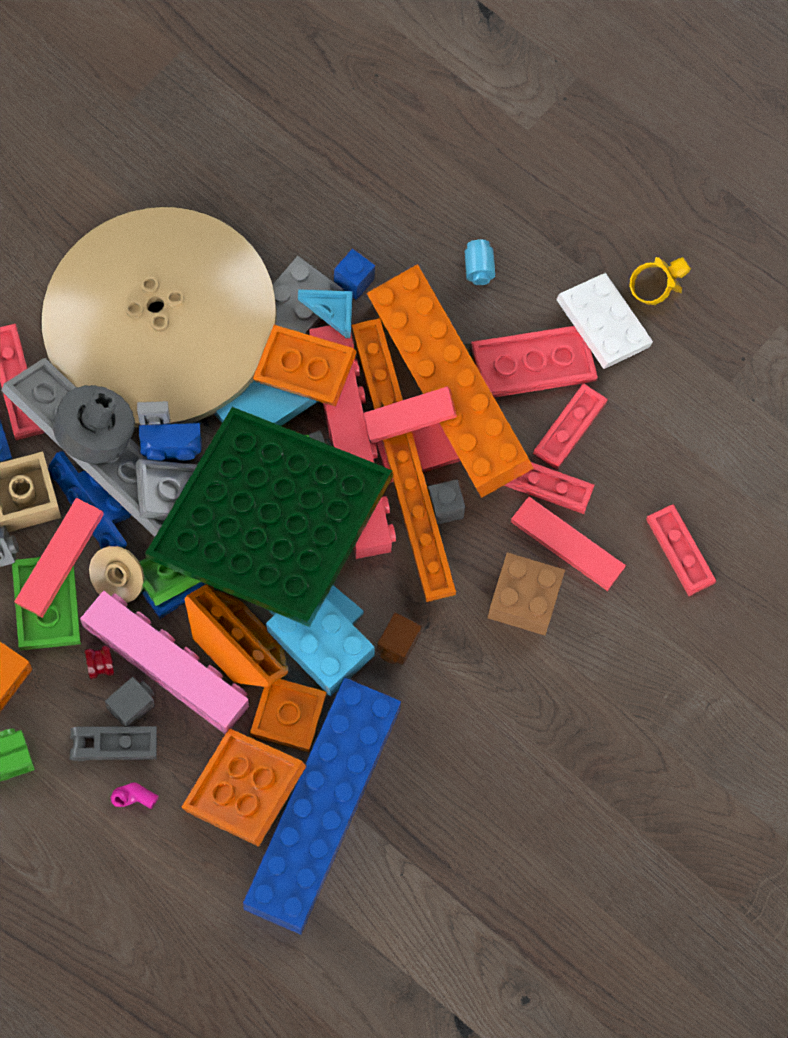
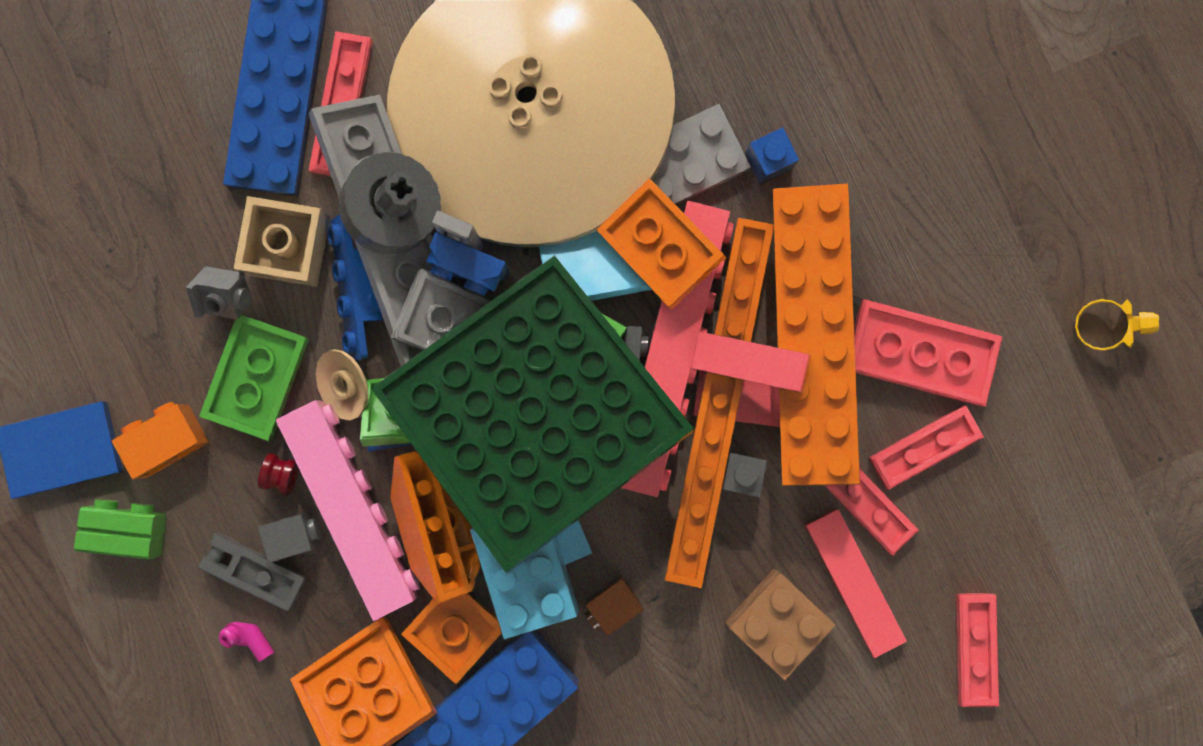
camera: 30 degrees right, 15 degrees up
(59, 557) = (285, 338): coral tile -> none
(331, 306) = (726, 186): medium azure tile -> none
(479, 262) = (920, 207): medium azure brick -> none
(604, 320) = (1027, 343): white plate -> none

